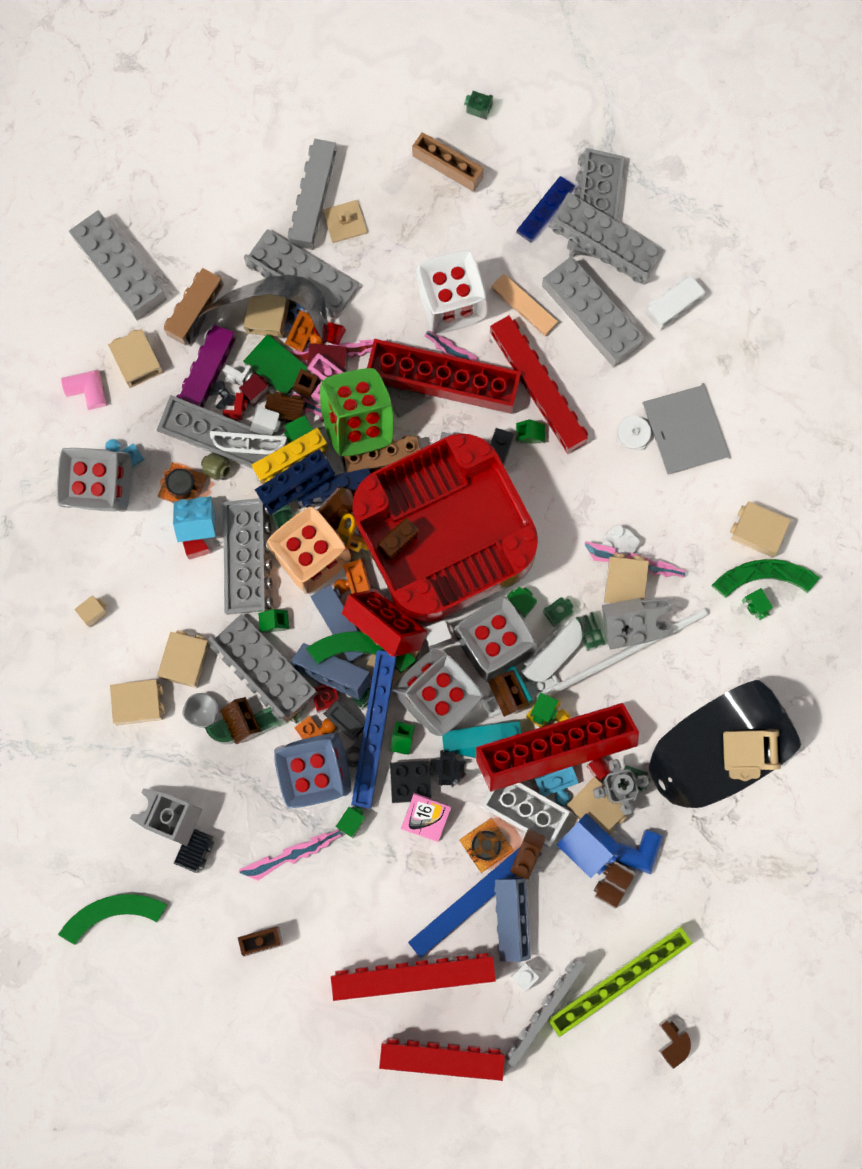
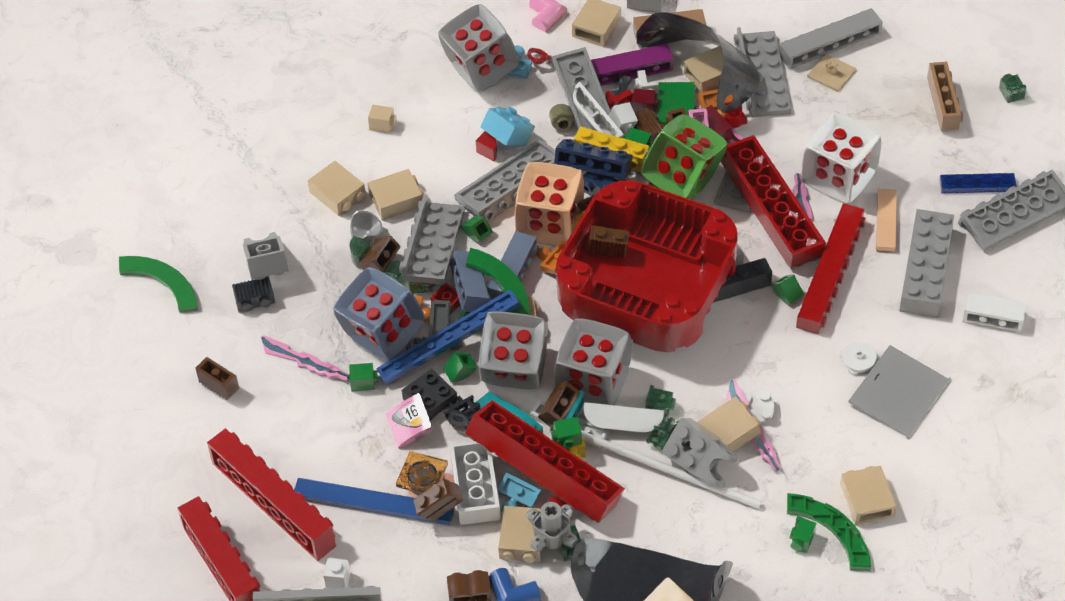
camera: 50 degrees right, 25 degrees down
(138, 427) = (539, 60): none -> red piece
(181, 483) = (530, 106): piece -> none
(384, 622) = (536, 282): red brick -> none
(439, 635) = (557, 327): white brick -> none
(512, 919) = (376, 530): sand blue brick -> none
(522, 600) = (644, 371): green brick -> none
(589, 846) = (483, 542): brick -> none
(605, 238) = (993, 230): light grey bracket -> none

